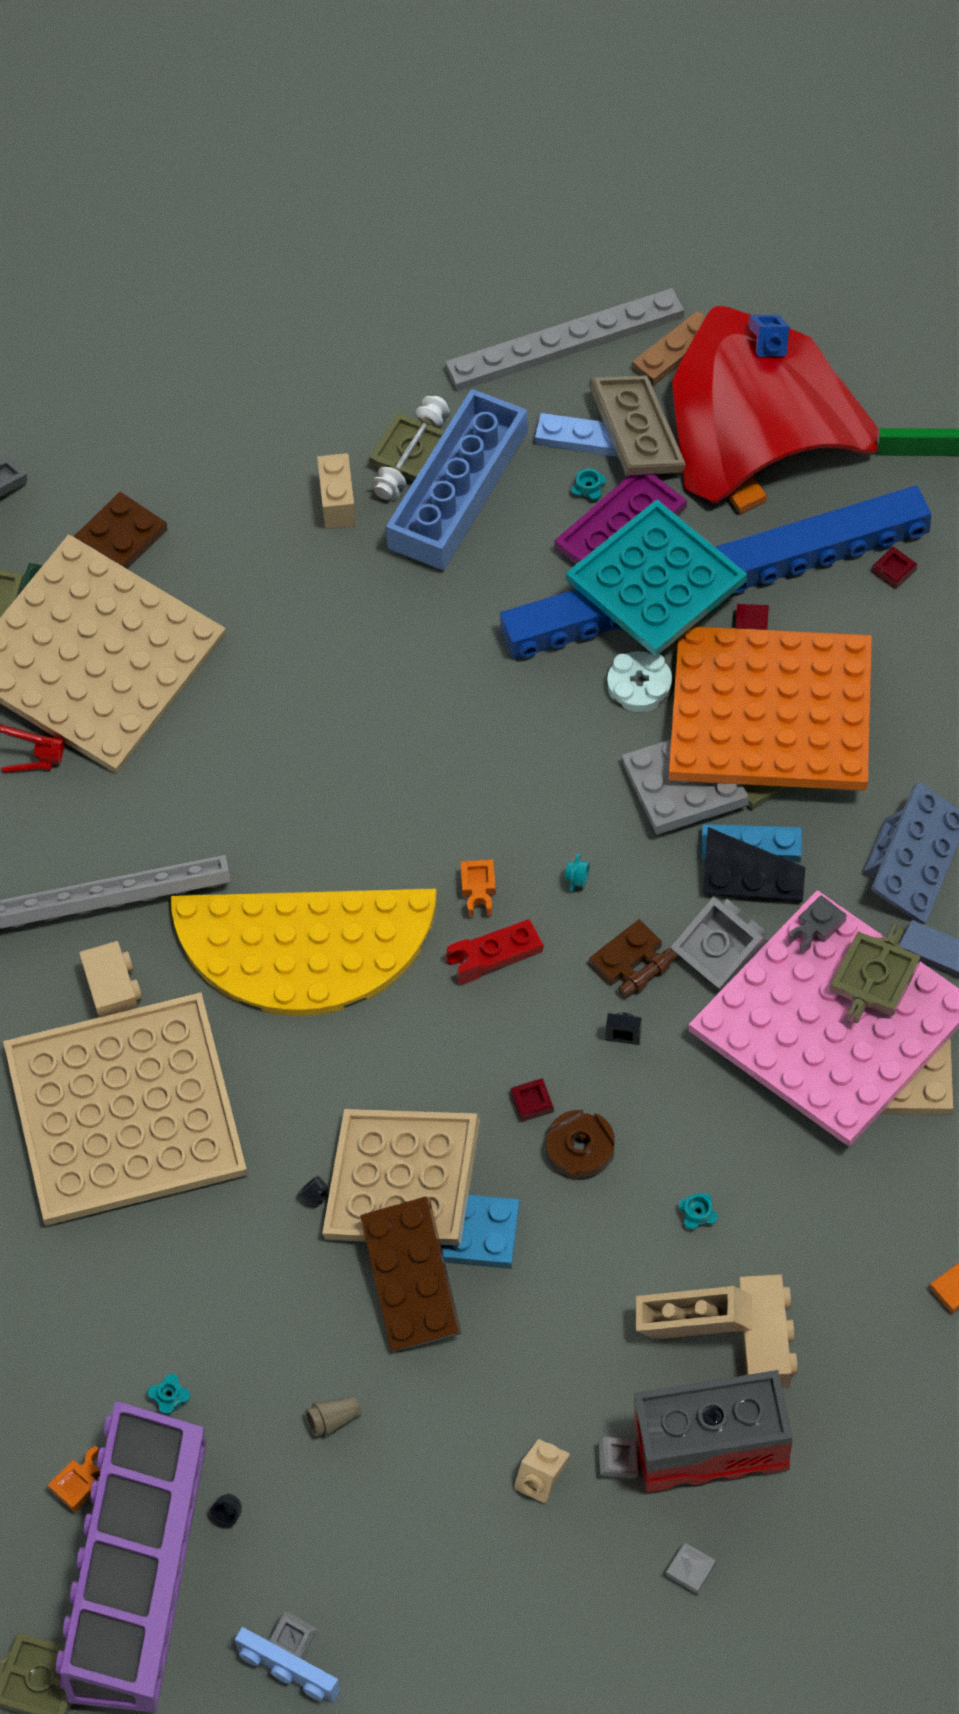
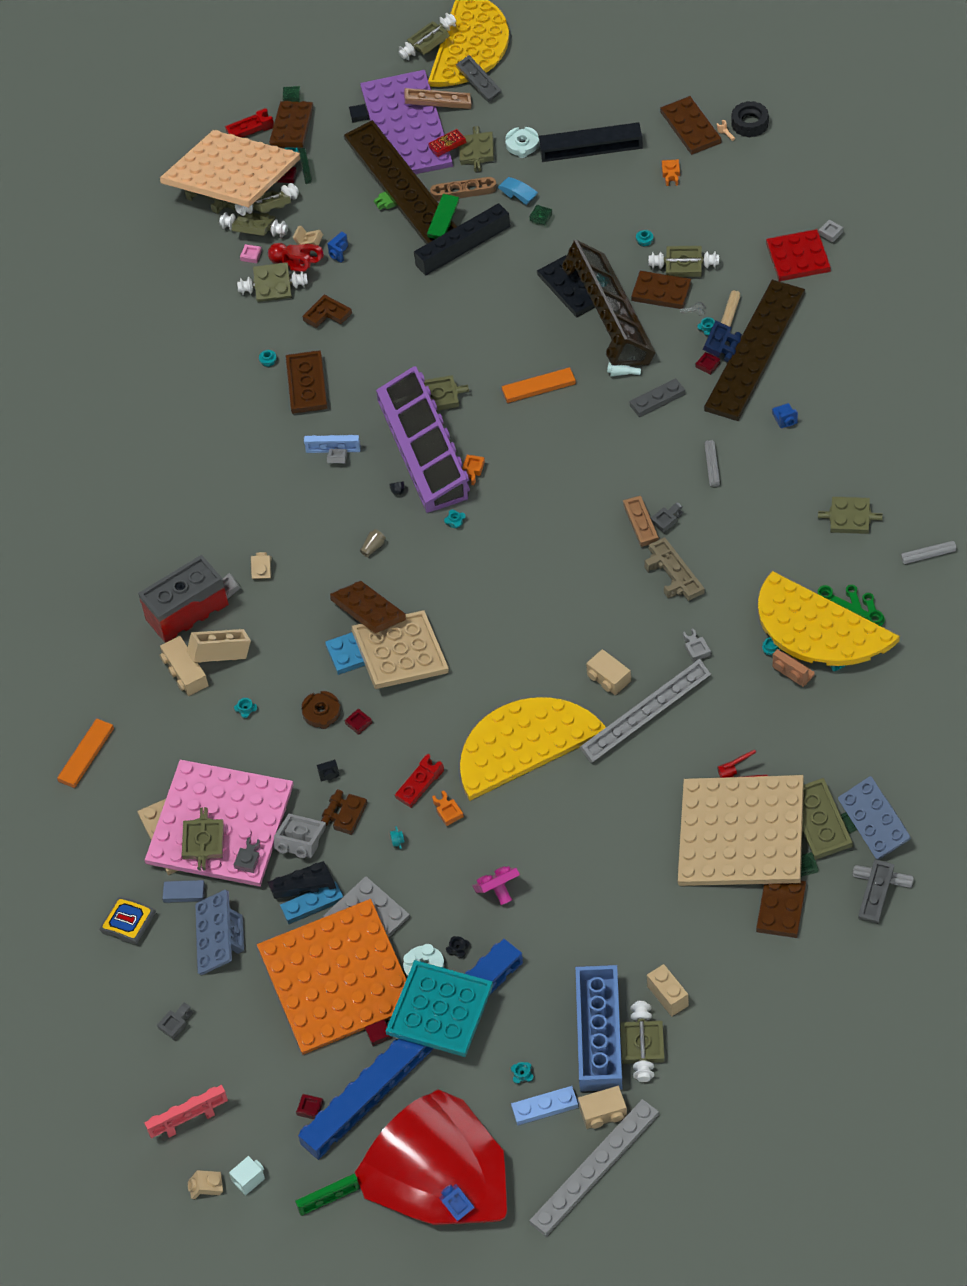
camera: 155 degrees right, 5 degrees down
(124, 1109) = (560, 622): tan plate -> none
(314, 1192) = (442, 629): black hinge -> none
(474, 729) = (497, 883): none -> dark pink plate
(516, 386) = (602, 1107): none -> tan brick
(578, 675) = (457, 941): none -> black plate
(614, 512) = (487, 1054): magenta plate -> none
(637, 425) = (512, 1119): dark tan tile -> none
(669, 351) = (521, 1193): medium nougat plate -> none
(691, 1568) = (171, 561): light grey tile -> none

